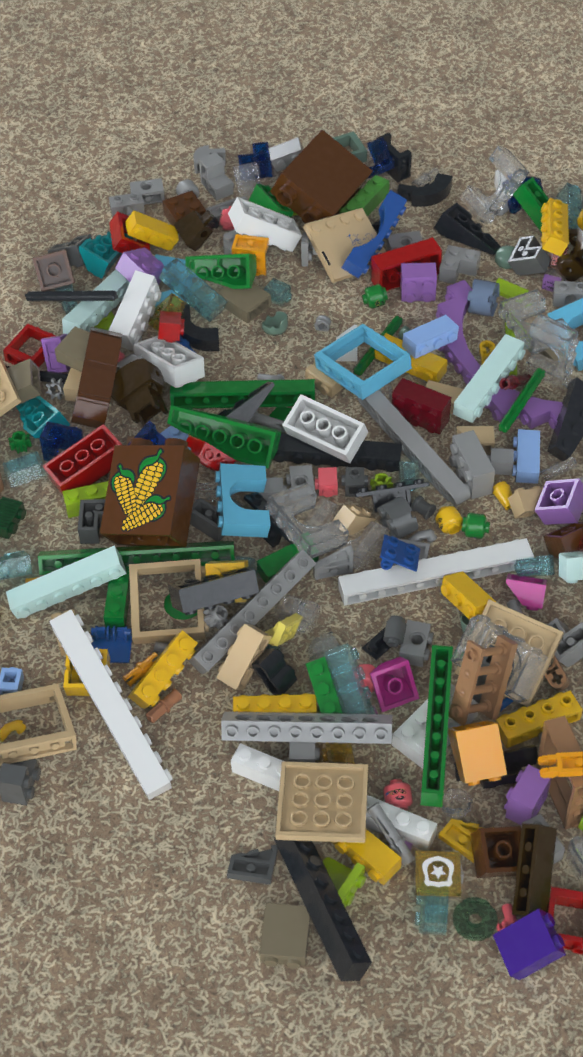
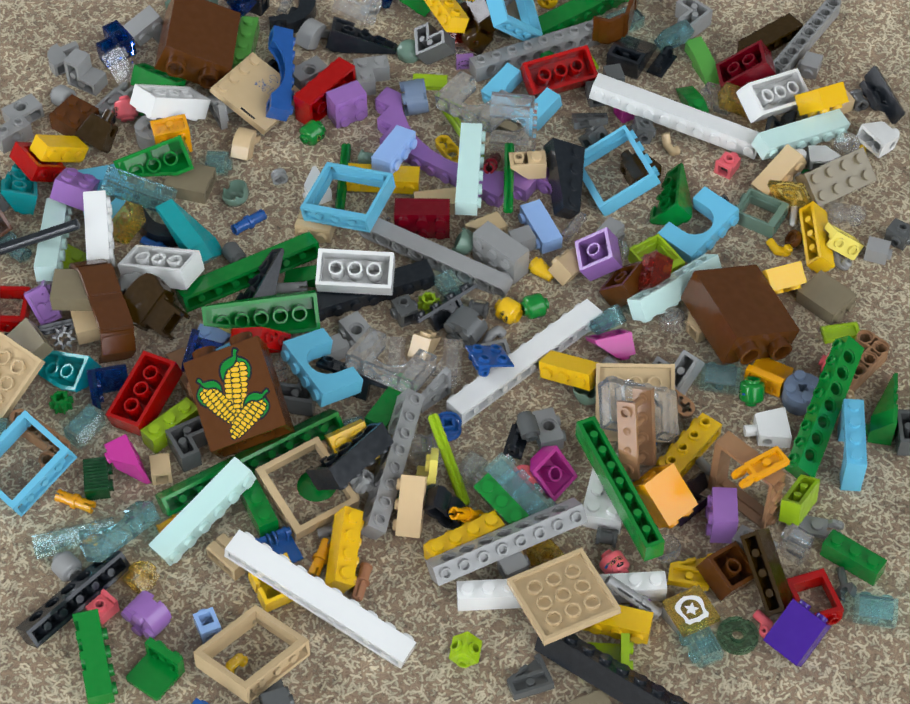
camera: 30 degrees left, 0 degrees up
(37, 510) = (126, 458): none -> dark pink slope
(61, 532) = (161, 468): none -> tan brick
(170, 326) = (145, 233): red brick -> none
(211, 810) = (465, 649): none -> lime brick
(212, 342) = (188, 232): none -> teal wedge
(240, 372) = (232, 252): none -> dark grey brick
(270, 377) = (257, 248): light grey arm -> none
(272, 352) = (248, 222): none -> blue pin
(288, 686) = (464, 514): none -> light orange pin
(305, 630) = (448, 458): none -> lime axle
(308, 283) = (244, 143): none -> tan brick
(327, 482) = (379, 319): coral brick -> none
(329, 600) = (452, 424): none -> blue wheel
(408, 766) = (606, 537): none -> dark grey bush
(426, 211) = (311, 33): none -> light grey brick
(442, 446) = (464, 242): none -> sand green hair
(546, 394) = (529, 164): none -> tan slope

